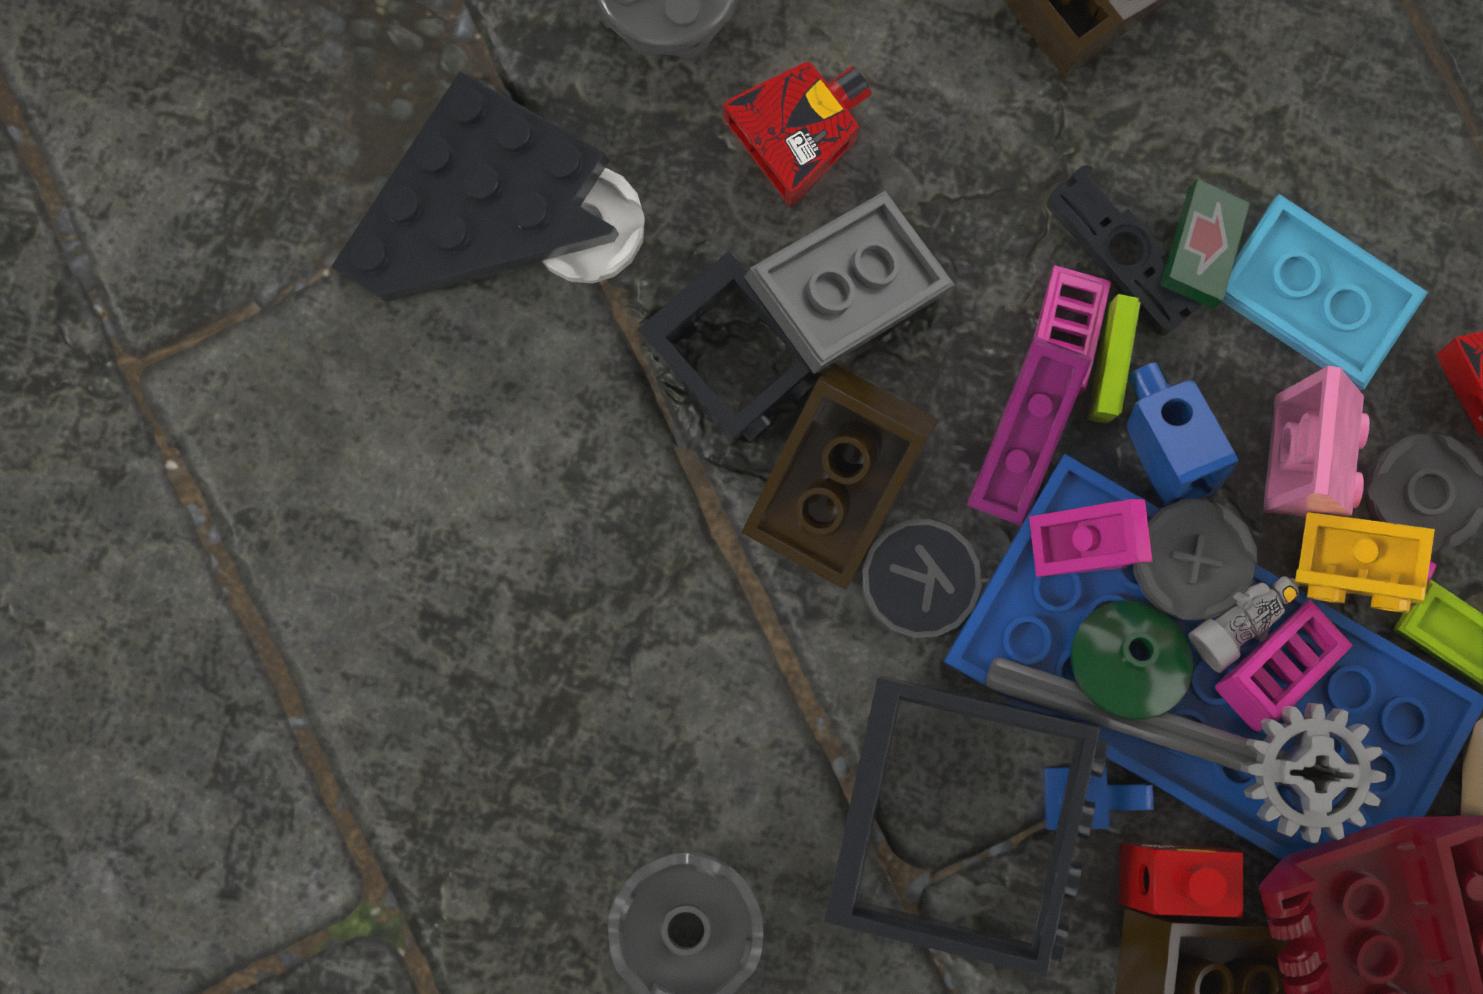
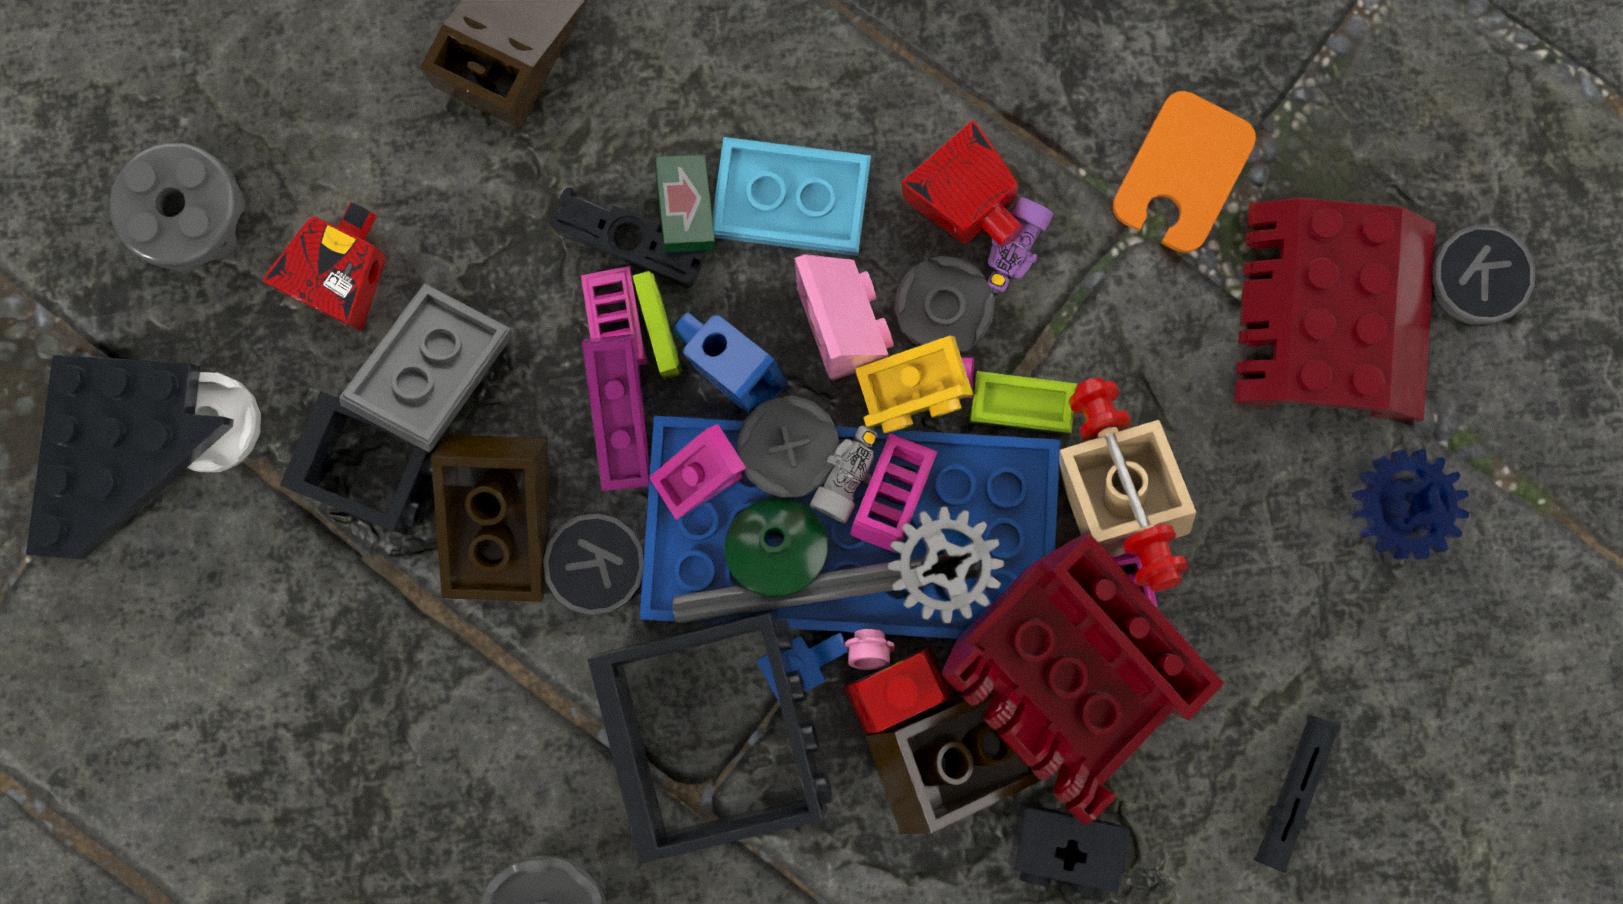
camera: 20 degrees left, 0 degrees up
(1175, 819) = (869, 650): none -> bright pink plate

